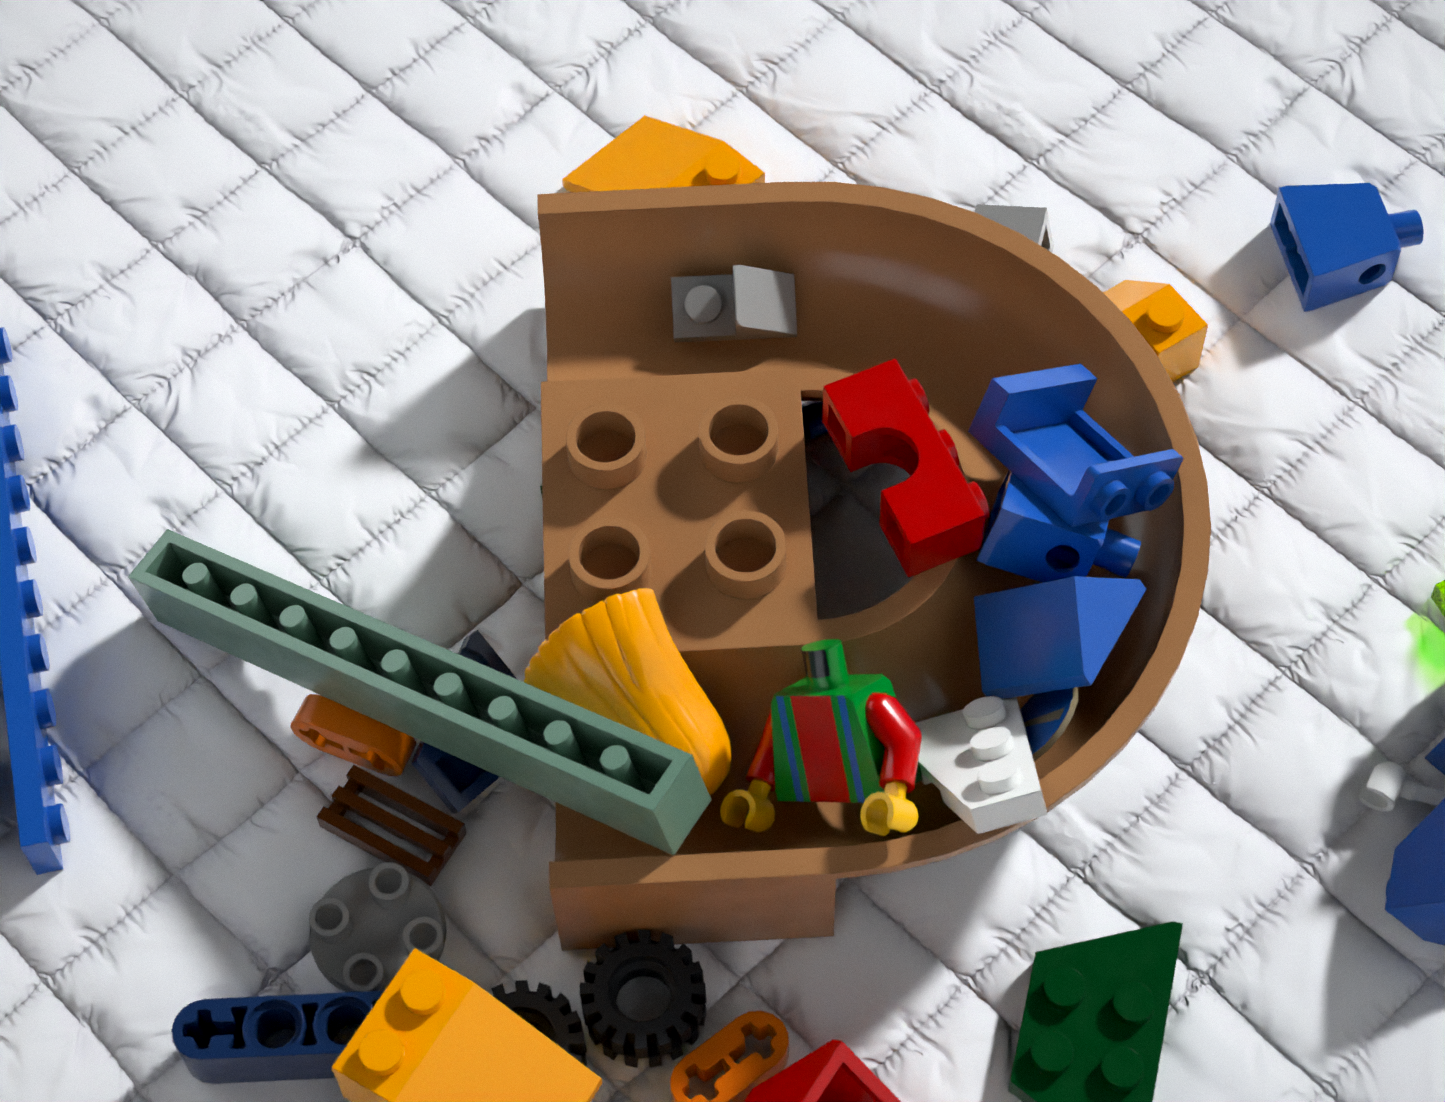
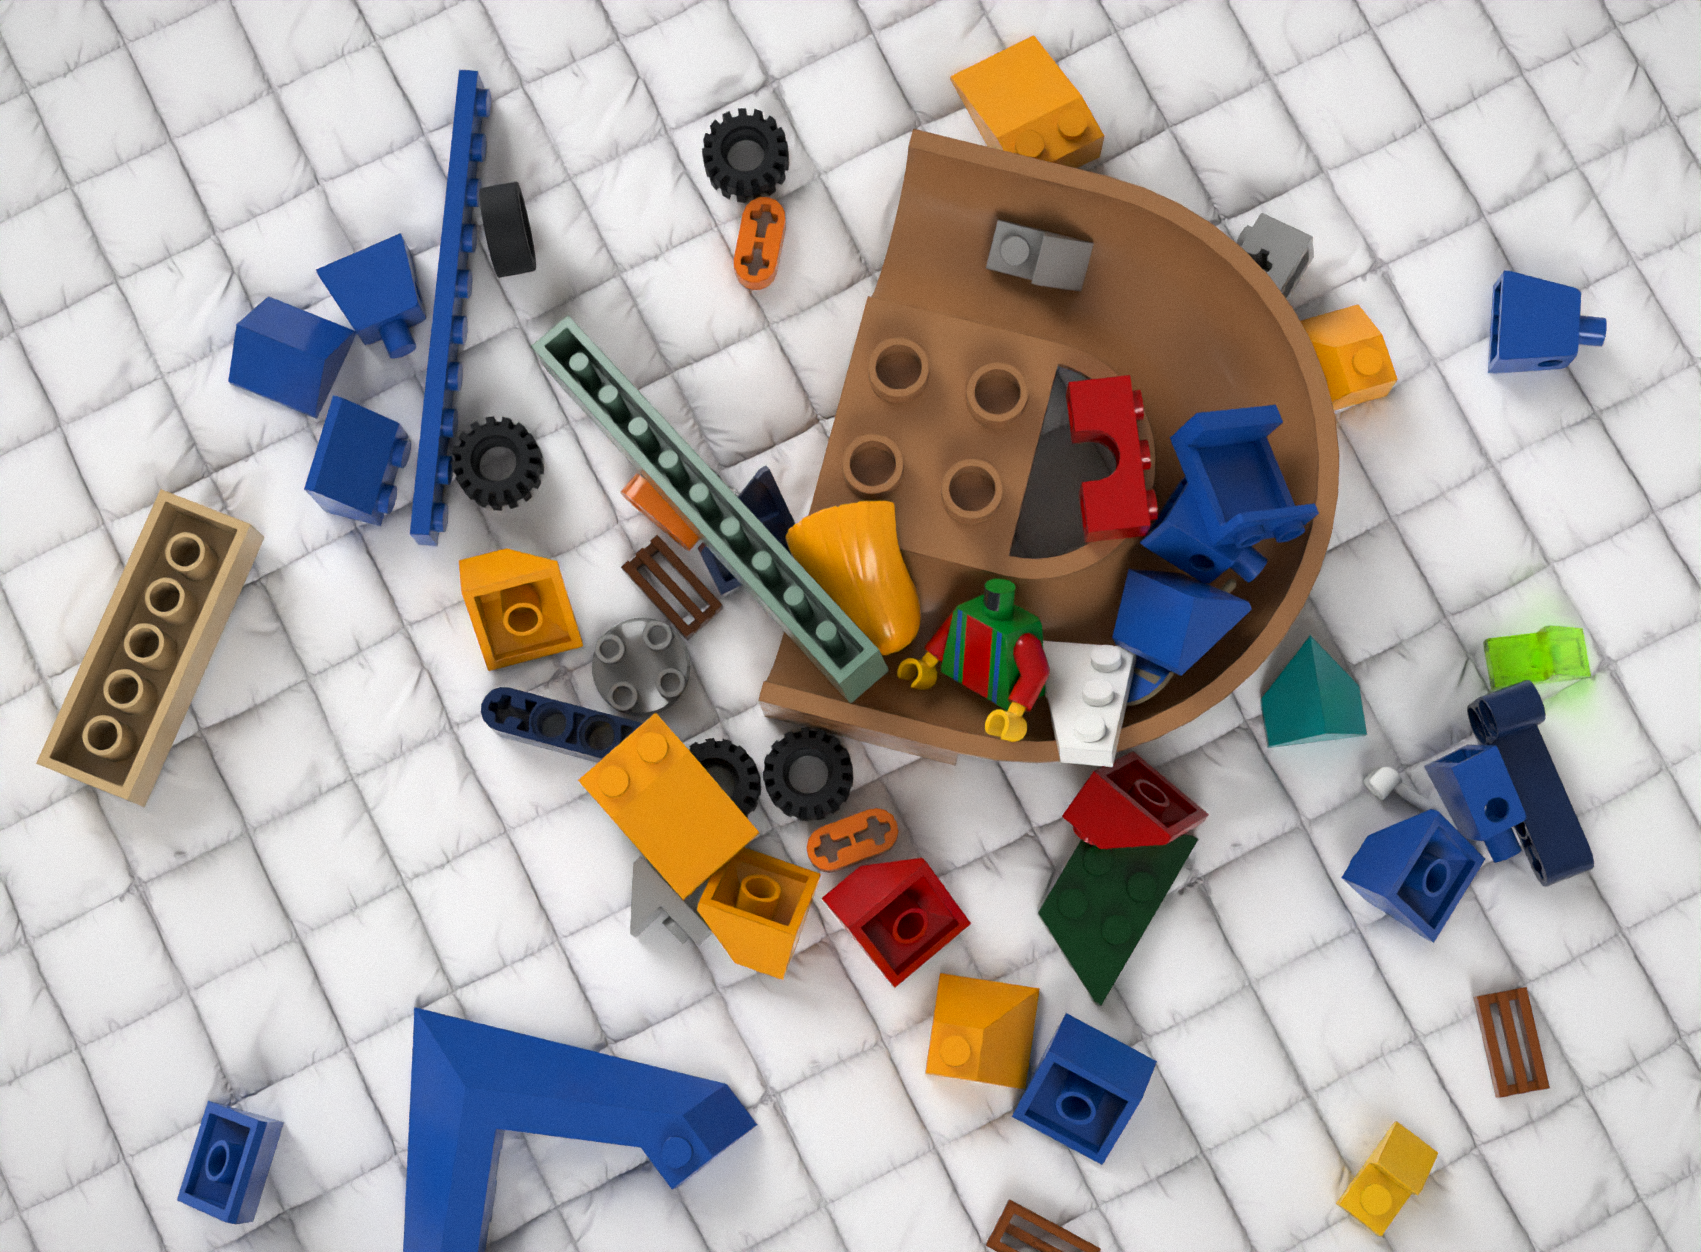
camera: 20 degrees right, 20 degrees up
(65, 463) = (507, 229): none -> black tyre
(107, 710) = (493, 435): none -> black tyre
(194, 902) = (517, 607): none -> light orange slope
(336, 291) = (742, 128): none -> black tyre
(376, 408) = (749, 241): none -> orange beam
(1074, 902) = (1131, 807): none -> red slope
(1255, 718) = (1312, 701): none -> teal slope

